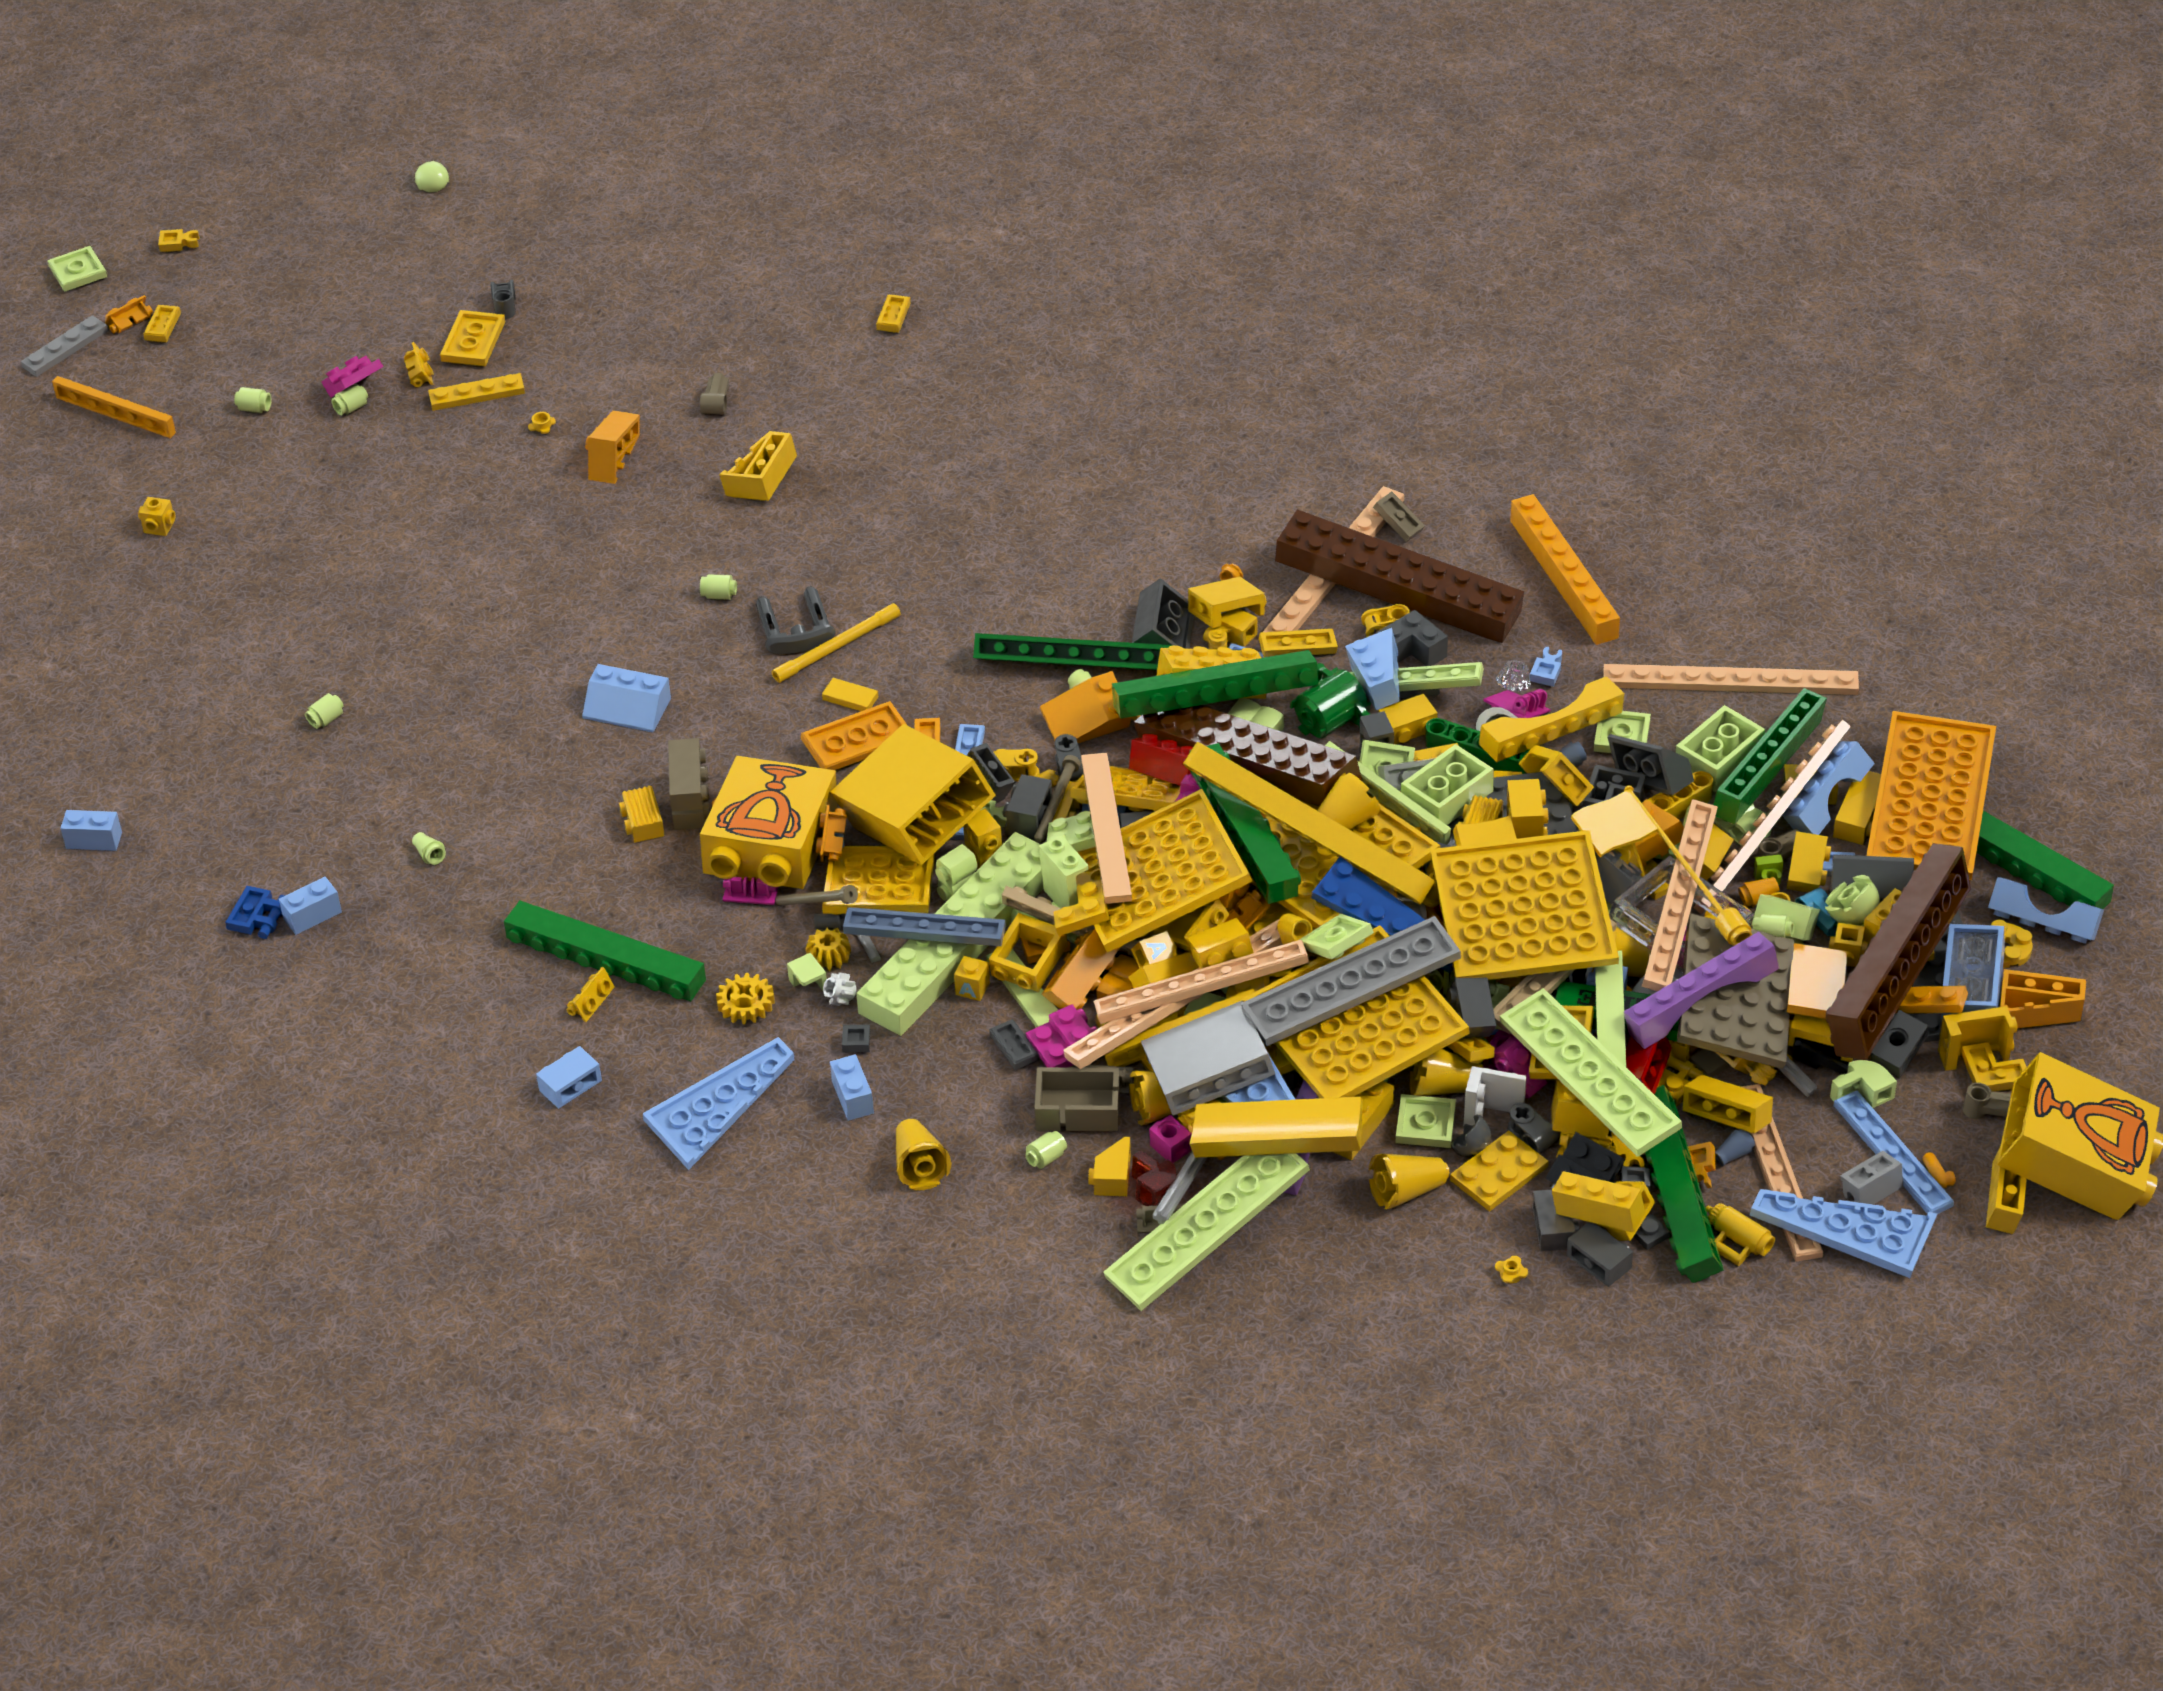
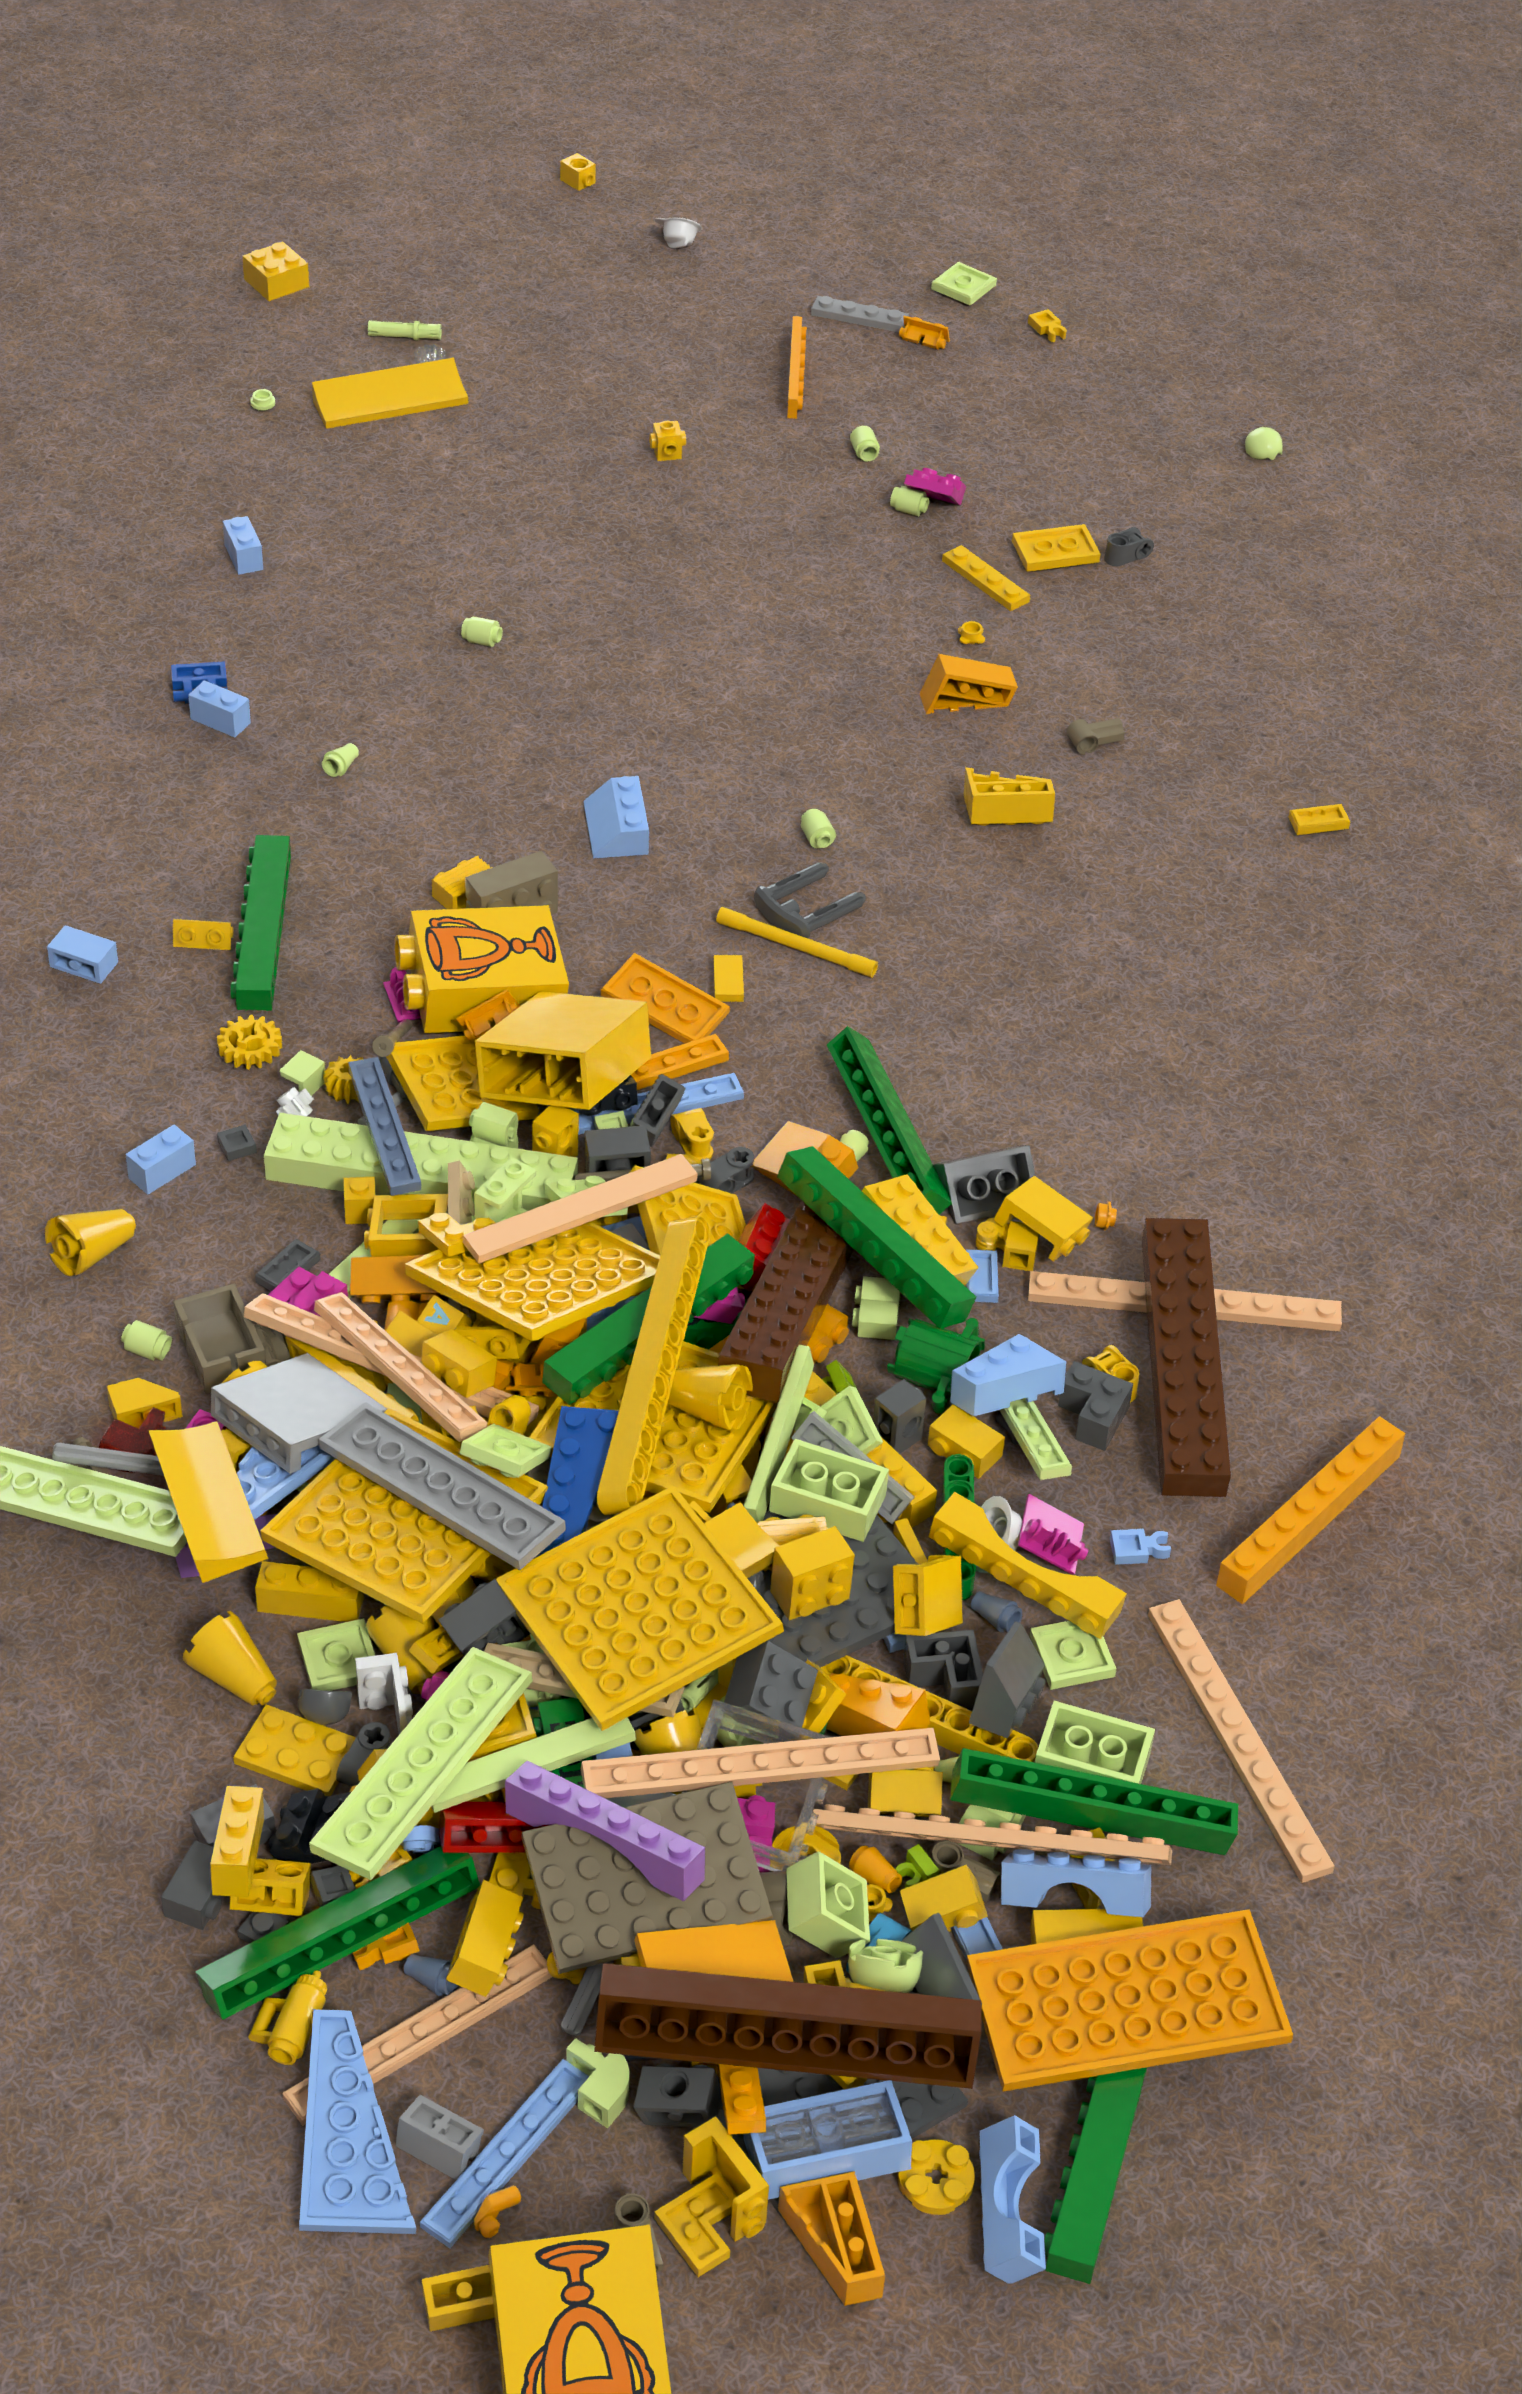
camera: 60 degrees right, 0 degrees up
(162, 323) = (929, 356): yellow plate -> none
(418, 367) = (991, 528): yellow hinge -> none
(706, 1110) = (91, 1066): light blue wing -> none
(1284, 642) = (1028, 1305): yellow plate -> none
(1399, 516) = (1292, 1328): dark tan plate -> none
(1511, 1275) = (147, 1816): yellow plate -> none
(1514, 676) = (1097, 1518): clear piece -> none
(1627, 821) = (832, 1660): yellow flag -> none
(1775, 925) = (780, 1886): yellowish green brick -> none

